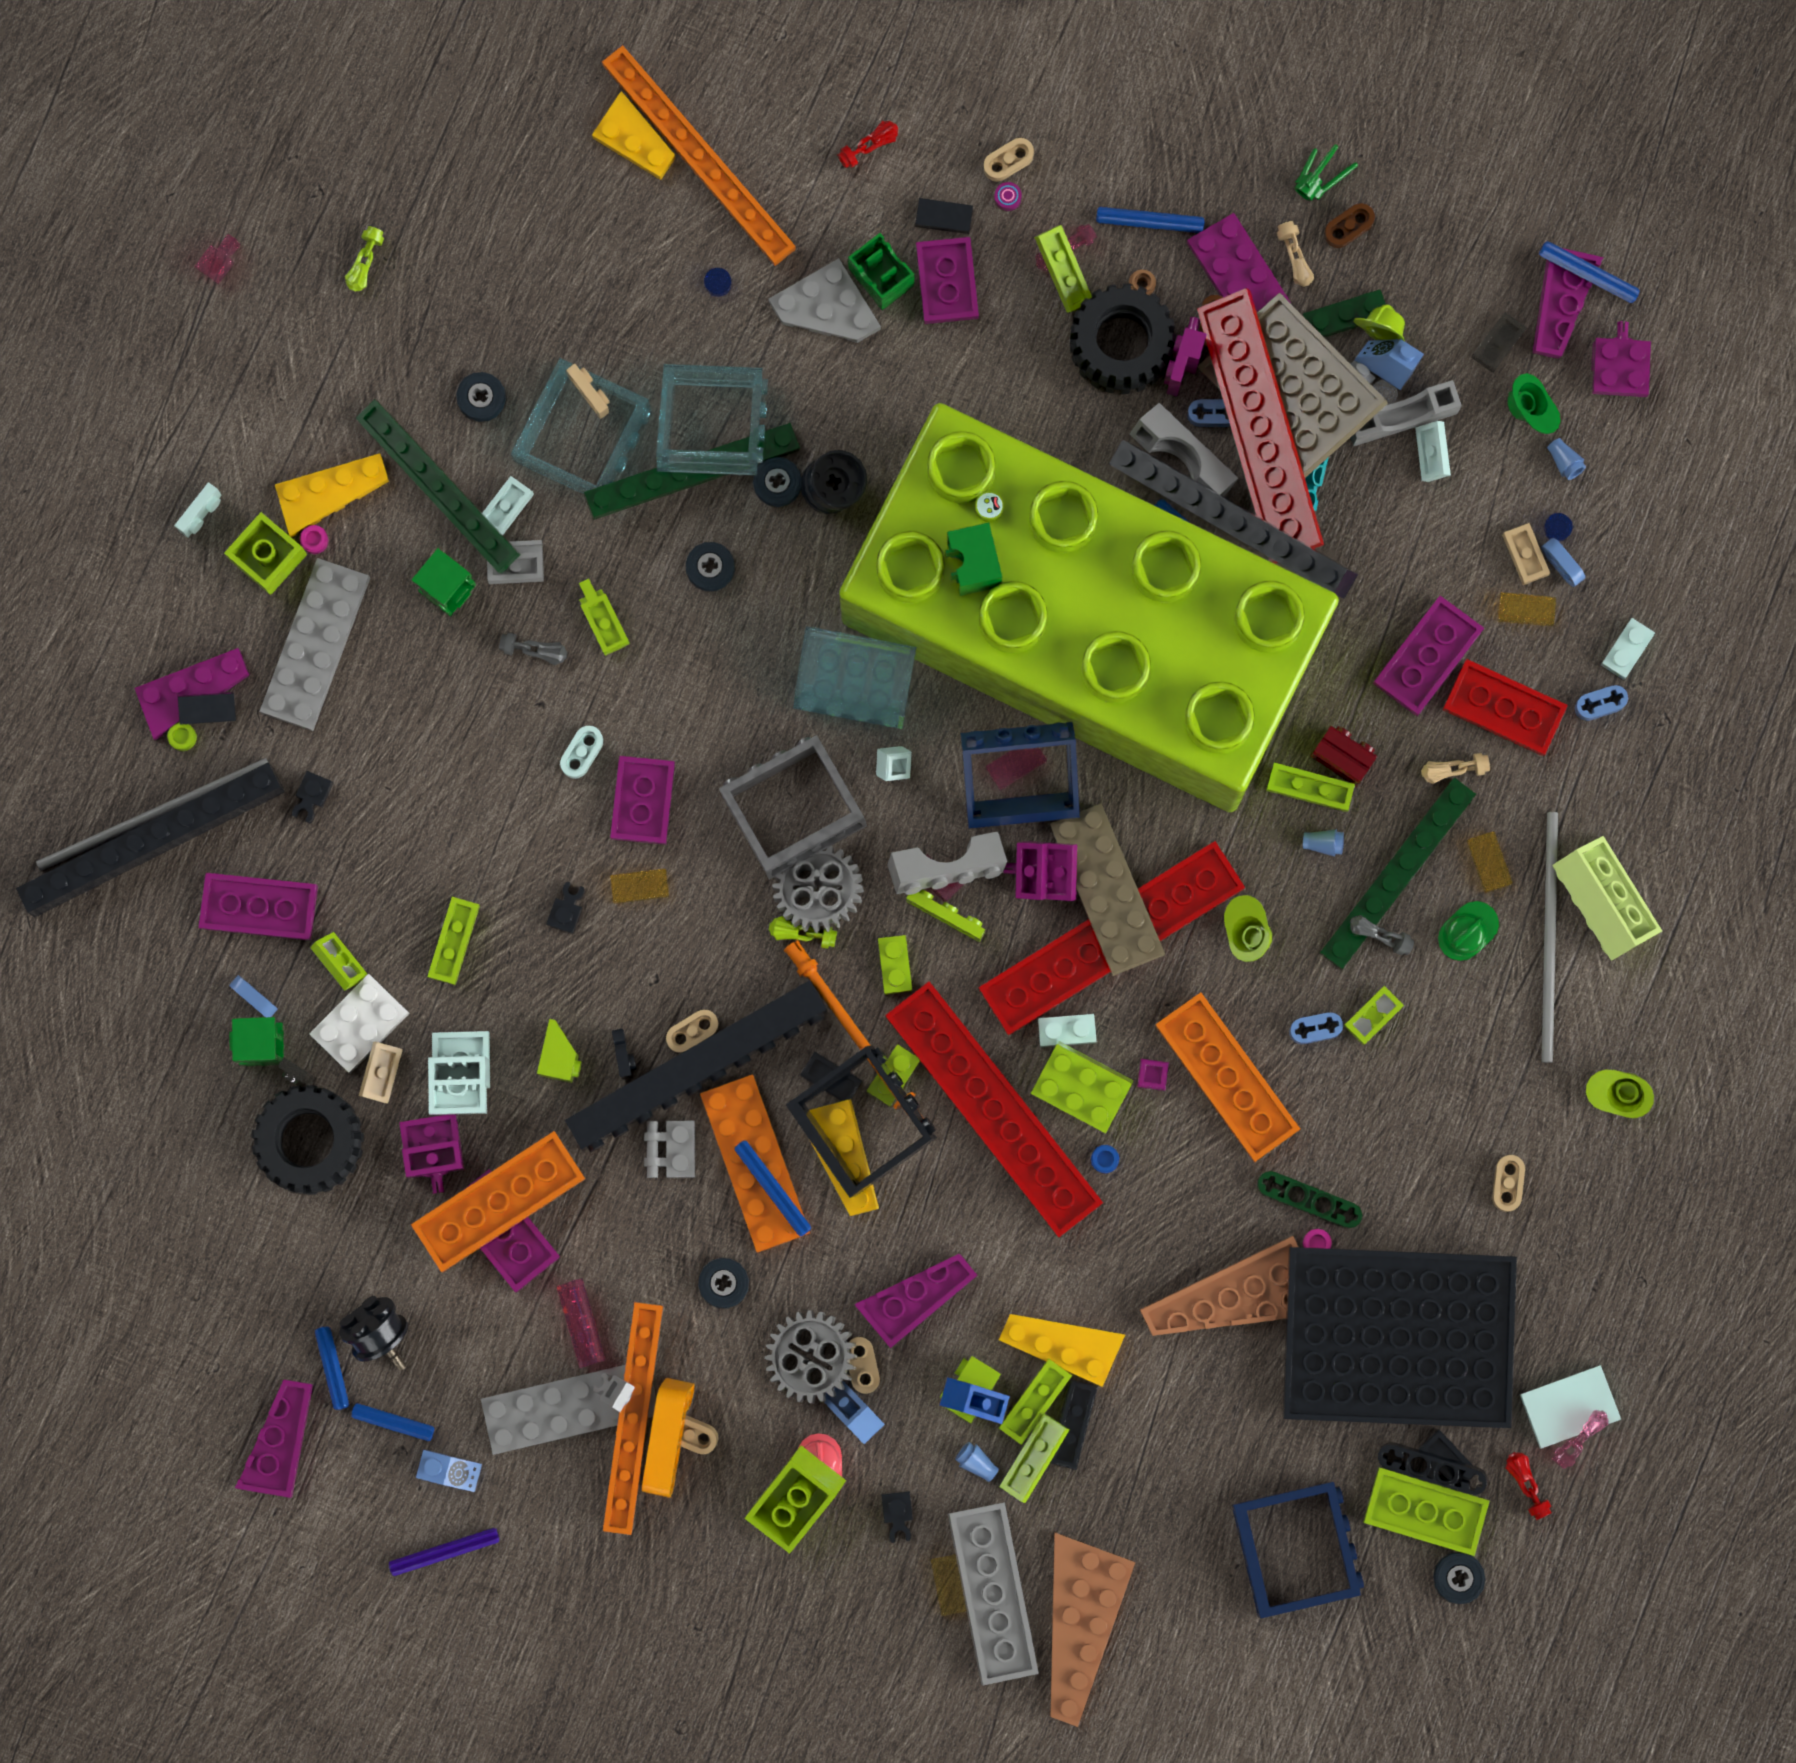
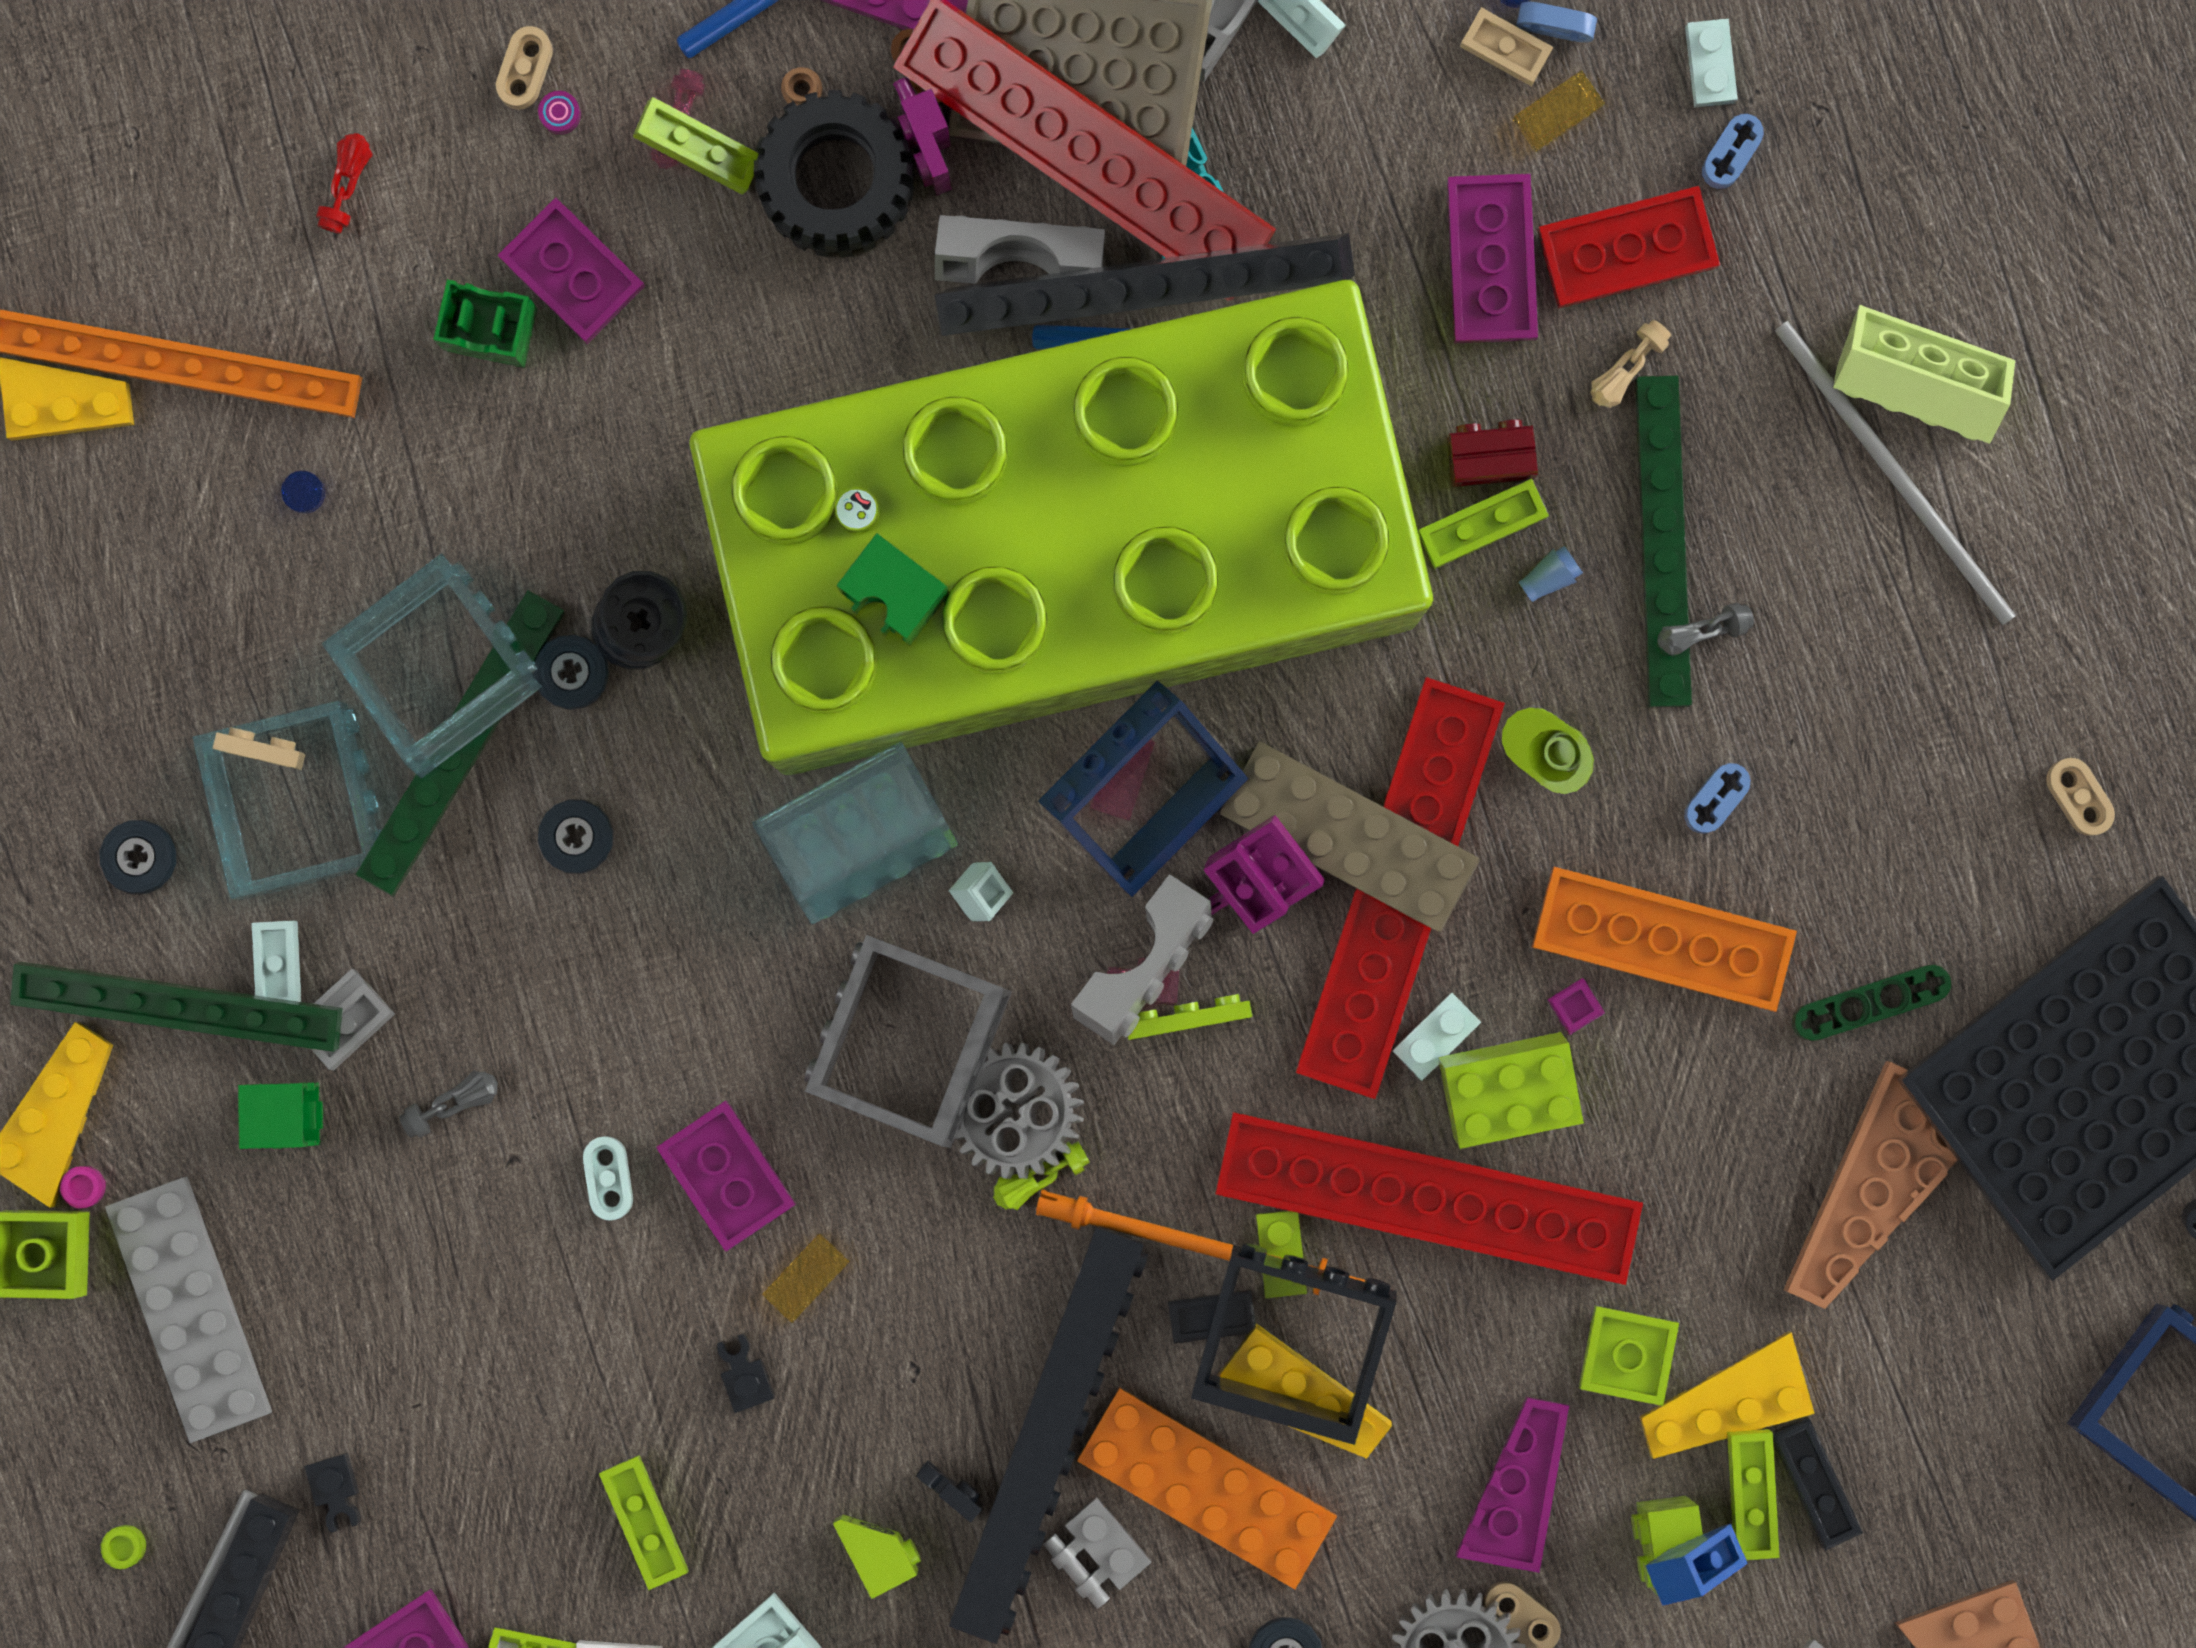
camera: 40 degrees left, 5 degrees up
(206, 708) = (123, 1492): black tile -> none
(211, 676) = (82, 1492): magenta wing -> none
(602, 619) = (501, 1002): lime hinge -> none
(691, 1029) = (1008, 1396): tan plate -> none
(772, 1188) = (1254, 1503): blue axle -> none
(826, 305) = (454, 414): light grey plate -> none
(895, 964) = (1176, 1124): lime piece -> none
(944, 216) = (504, 196): black tile -> none
(975, 1461) = (1743, 1619): medium blue cone -> none
(1030, 1276) = (1628, 1355): none -> lime plate
(1034, 1458) = (1806, 1561): lime plate -> none
(1105, 1159) = (1601, 1149): blue tile -> none
(1208, 420) = (1013, 187): medium blue beam -> none
(1317, 1239) = (1918, 1042): dark pink tile -> none
(1373, 1015) = (1771, 729): lime piece -> none
(1468, 931) = (1796, 541): green piece -> none
(1489, 862) = (1756, 442): clear yellow tile -> none
(1620, 1093) = (2126, 589): lime piece -> none

